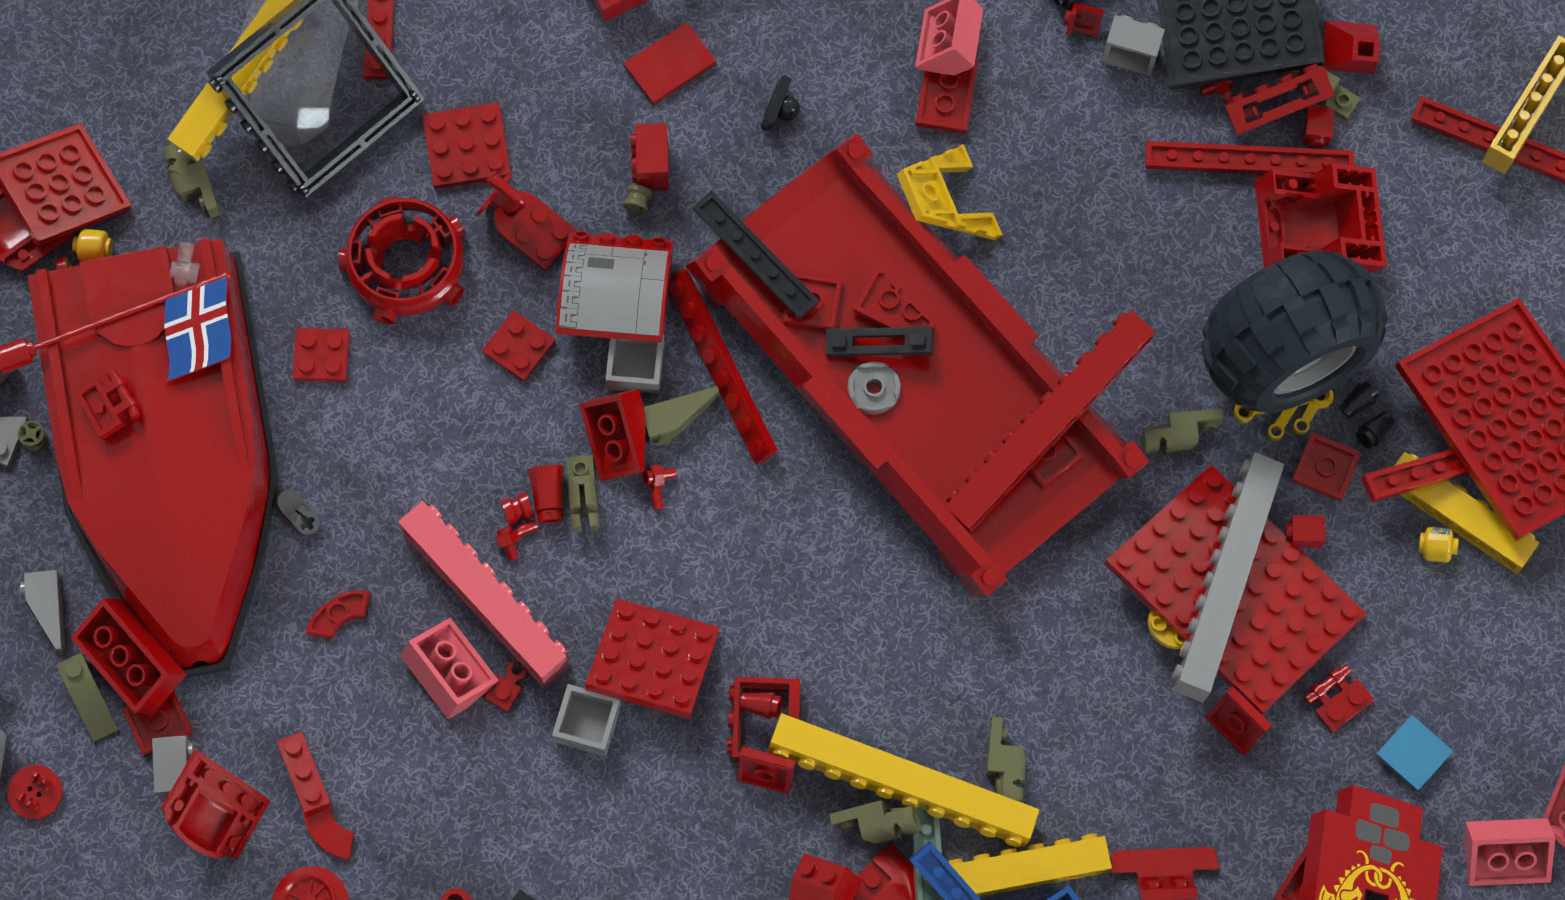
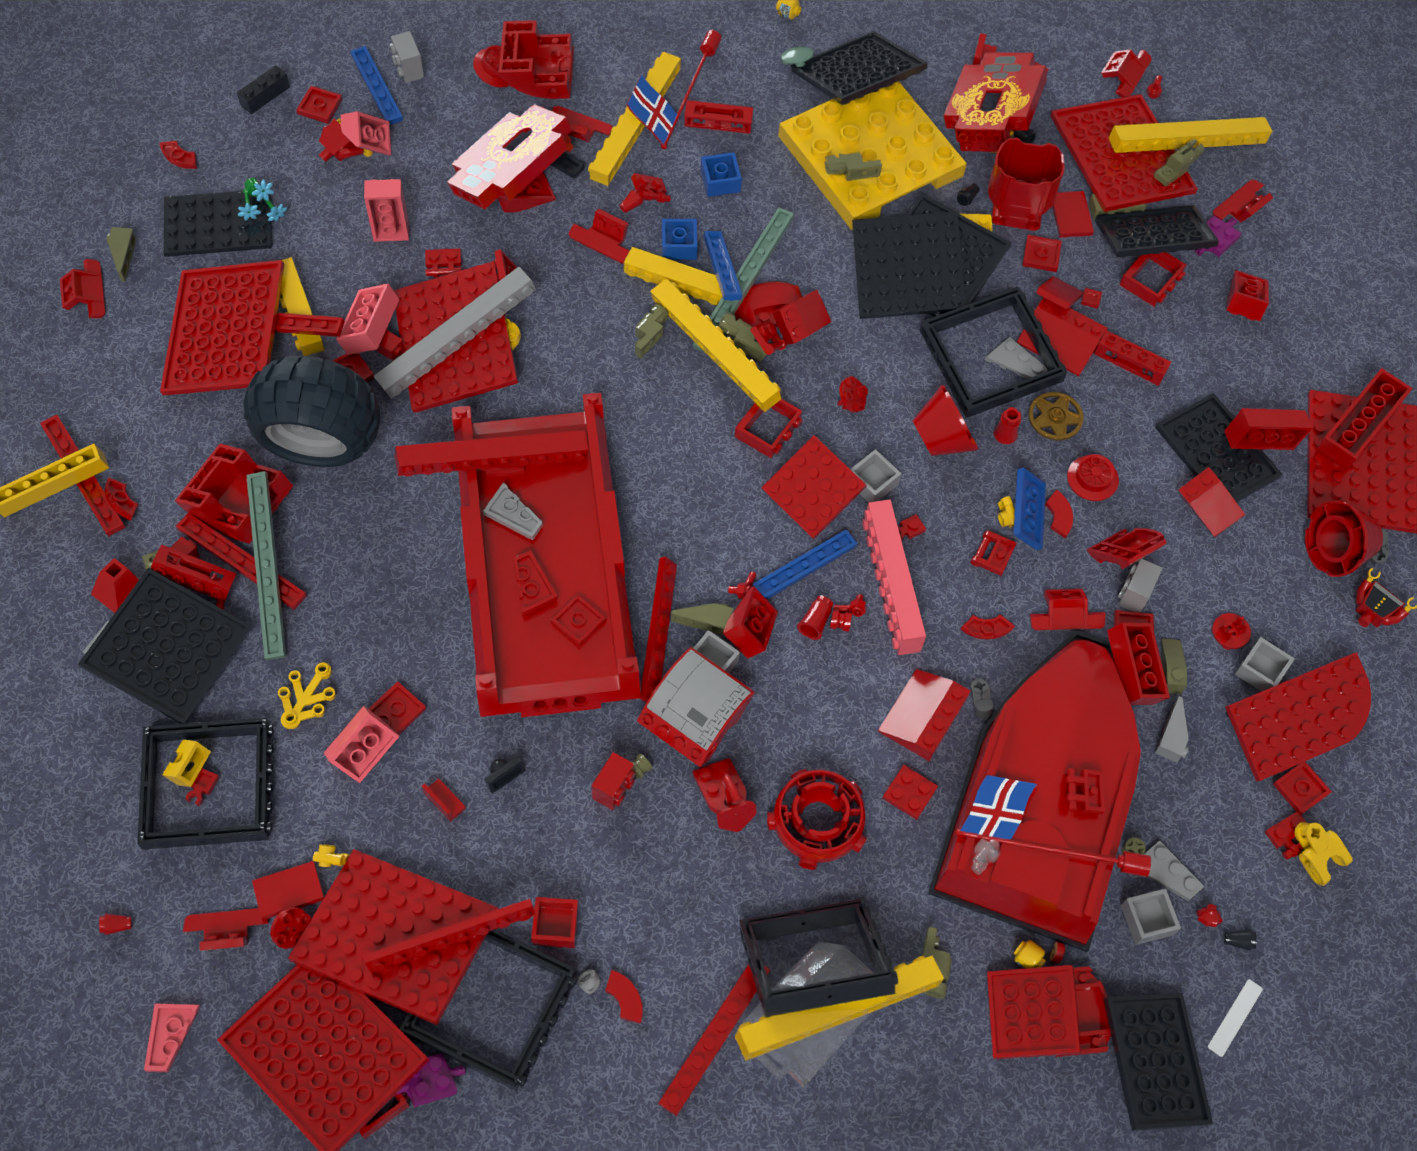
camera: 150 degrees left, 10 degrees down
(252, 692) = (1067, 611): none -> red plate
(303, 773) = (1059, 548): red plate -> none
(355, 454) = (924, 713): none -> slope
(367, 799) = (1029, 508): none -> blue plate
(373, 716) = (999, 556): none -> red plate
(390, 779) = (1007, 516): none -> yellow plate
(448, 667) = (938, 552): coral slope -> none
(466, 145) = (728, 876): red plate -> none
(518, 346) = (777, 721): red plate -> none
(532, 842) = (943, 426): none -> red cone
(582, 492) = (794, 606): olive plate -> none
(602, 556) = (805, 564): none -> blue plate
(670, 63) = (554, 849): red tile -> none
(693, 827) = (852, 394): none -> red plate
(755, 255) = (595, 663): black plate -> none
(762, 704) = (767, 423): red cone -> none
(765, 770) = (787, 393): red plate -> none
(823, 40) = (443, 799): none -> red panel
(850, 838) = (766, 332): none -> red plate
(869, 402) = (580, 558): light grey tile -> none
(917, 341) = (534, 549): black container -> none
(932, 201) = (455, 643): yellow wing -> none
(979, 380) = (512, 513): none -> light grey wing
(1053, 57) = (305, 698): none -> yellow plant
(1083, 19) = (265, 707): red bracket -> none
(1133, 44) = (250, 665): light grey piece -> none
(1181, 431) = (412, 433): olive plate -> none
(1212, 160) = (266, 566): none -> sand green plate
(1353, 535) = (368, 319): none -> coral brick
(1414, 753) = (426, 215): dark azure tile -> none
(1438, 544) = (324, 298): yellow head -> none
(1445, 143) = (118, 498): none -> red tile
(1453, 694) = (386, 210): none -> coral brick
(1509, 851) = (417, 149): coral slope -> none

